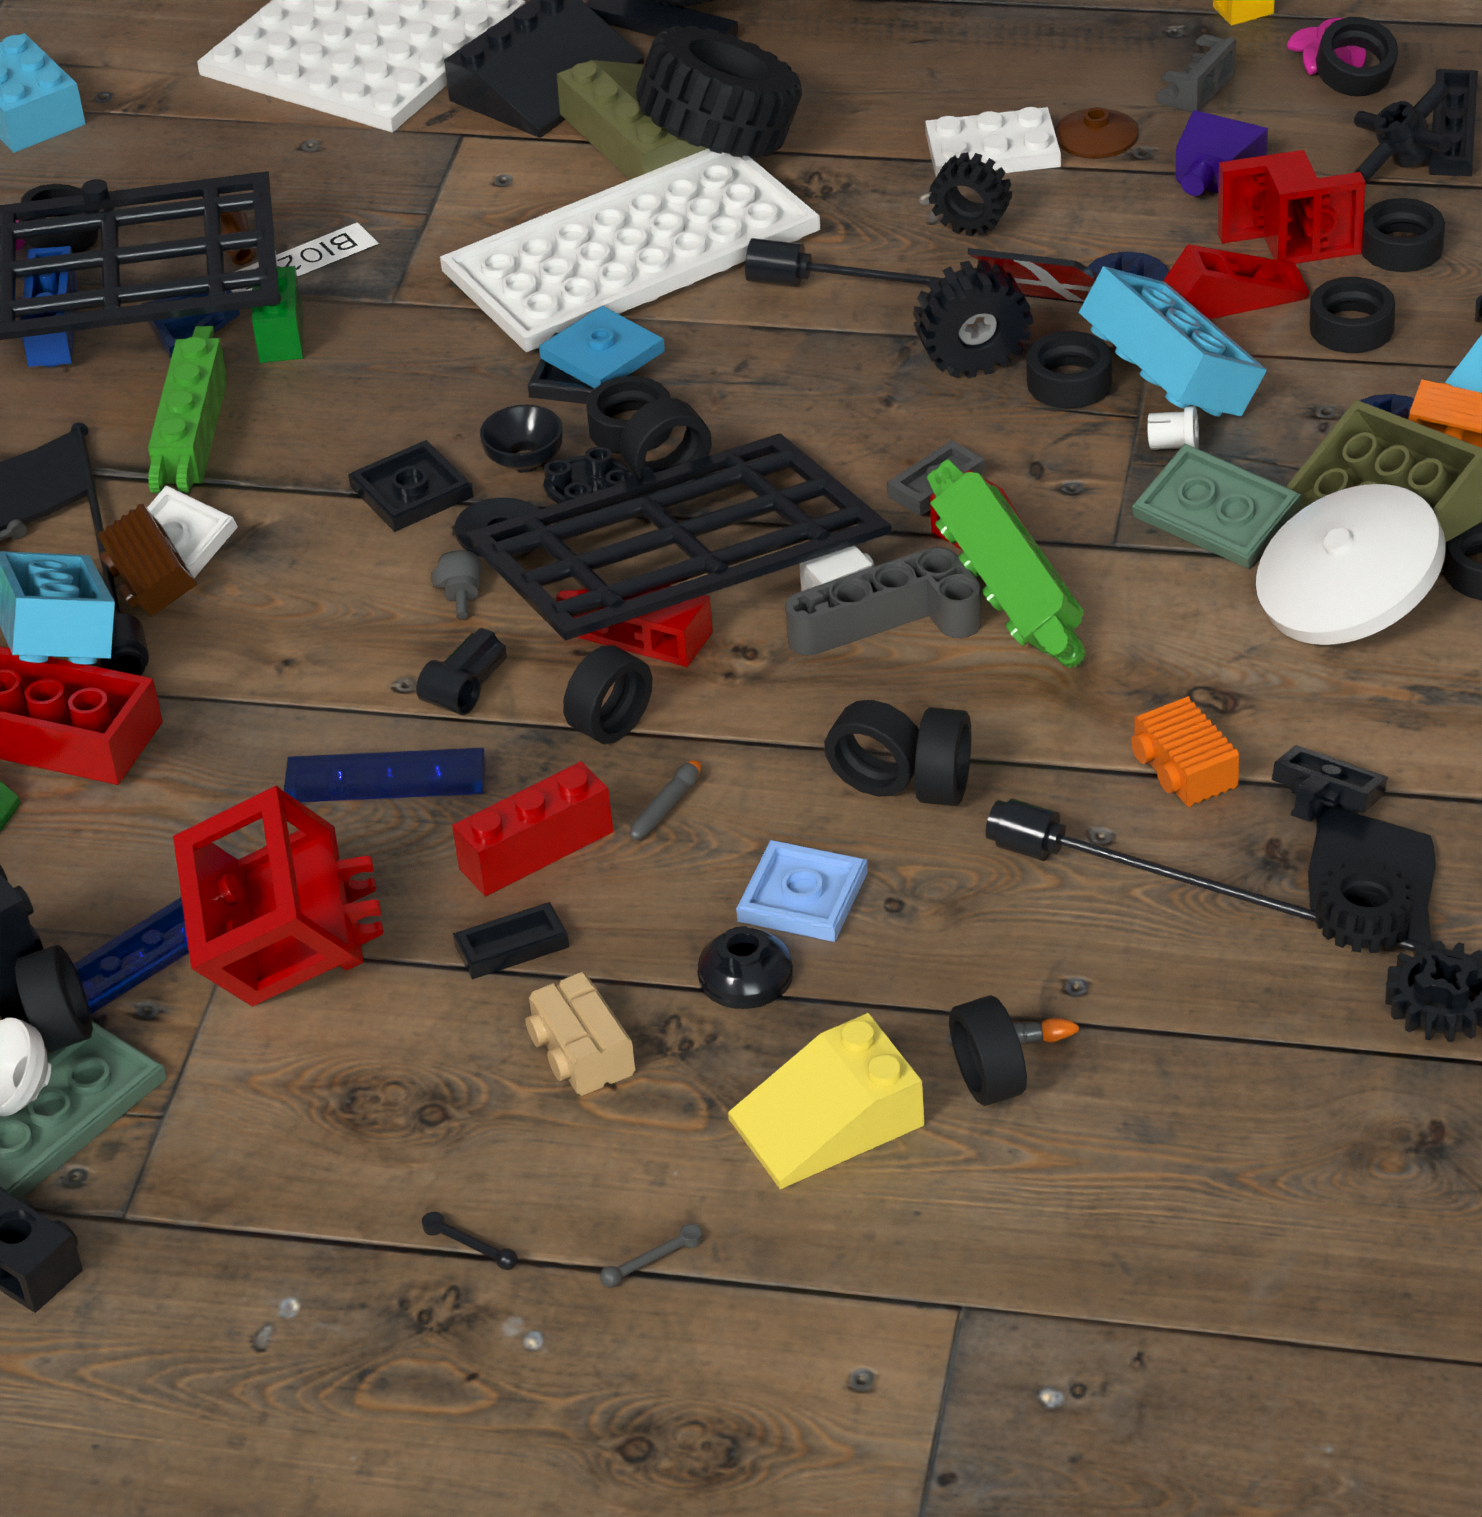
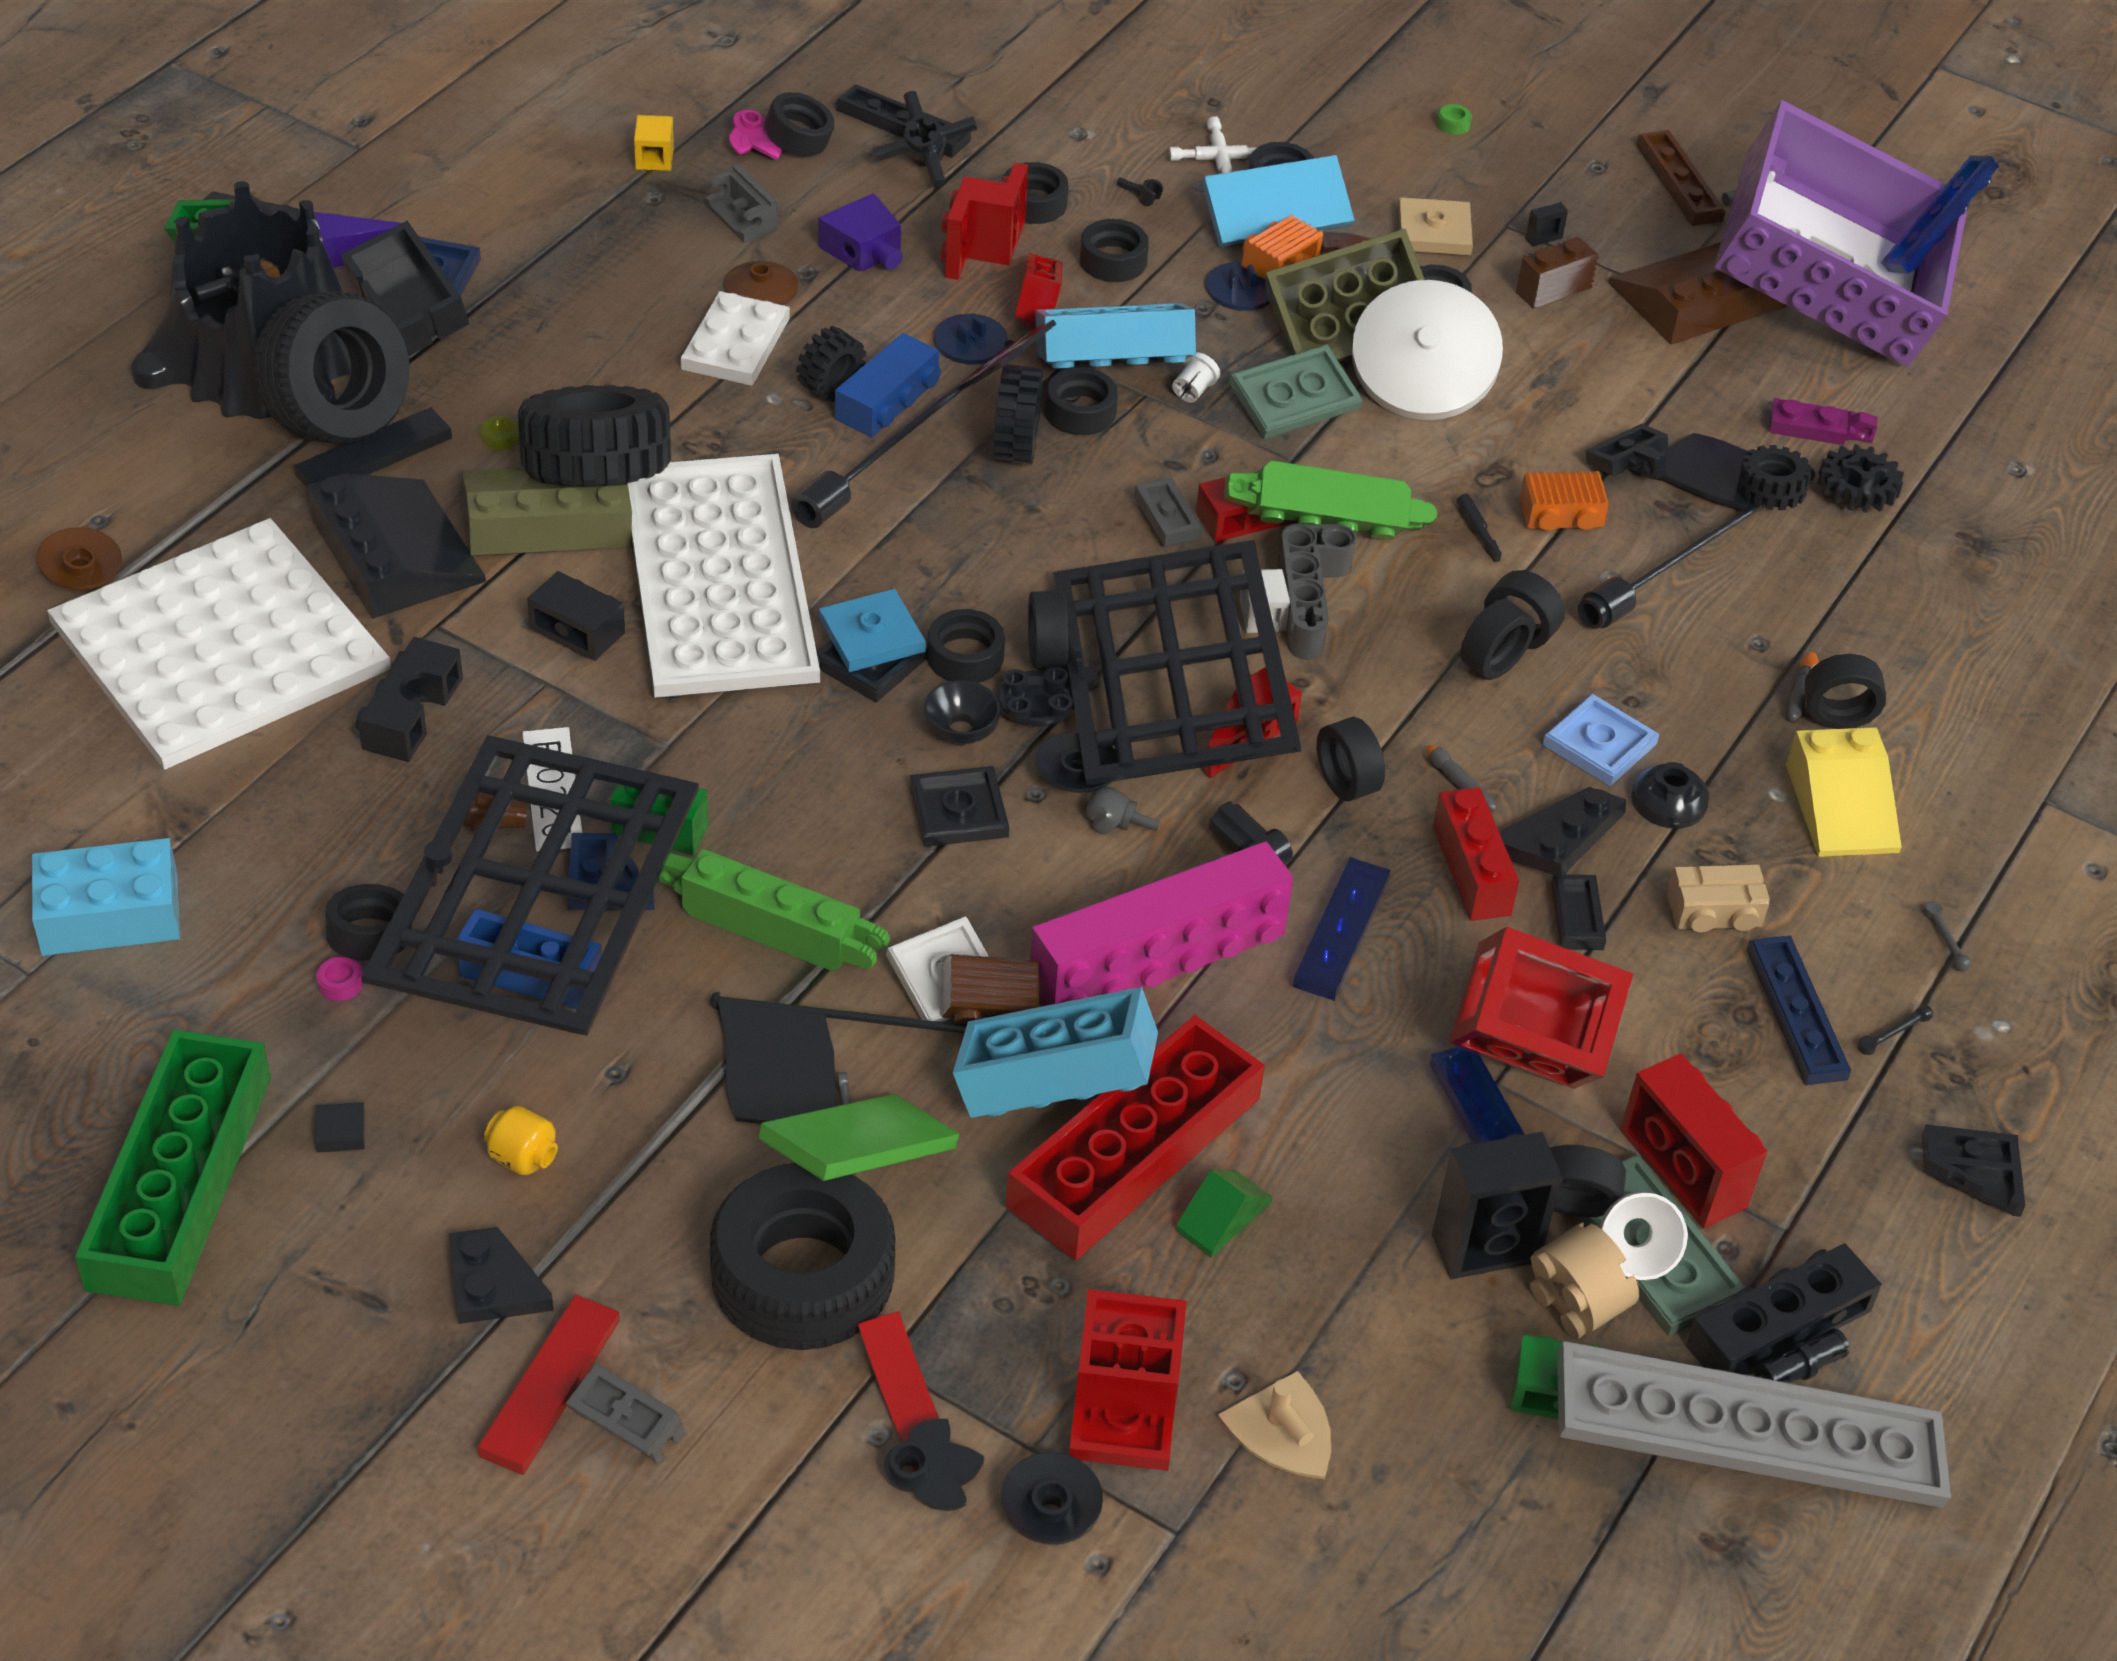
camera: 75 degrees left, 5 degrees up
(167, 1080) = (1693, 1140): none -> red brick
(274, 1347) = (1977, 1163): none -> black wing
(276, 637) = (1164, 927): none -> dark pink brick
(314, 142) = (394, 718): none -> black arch
(455, 1150) = (1798, 1010): none -> dark blue tile
(500, 184) = (576, 615): none -> black brick
(621, 891) = (1564, 831): none -> black wing
(948, 234) = (887, 385): none -> blue brick
(1104, 706) = (1478, 525): none -> black piece

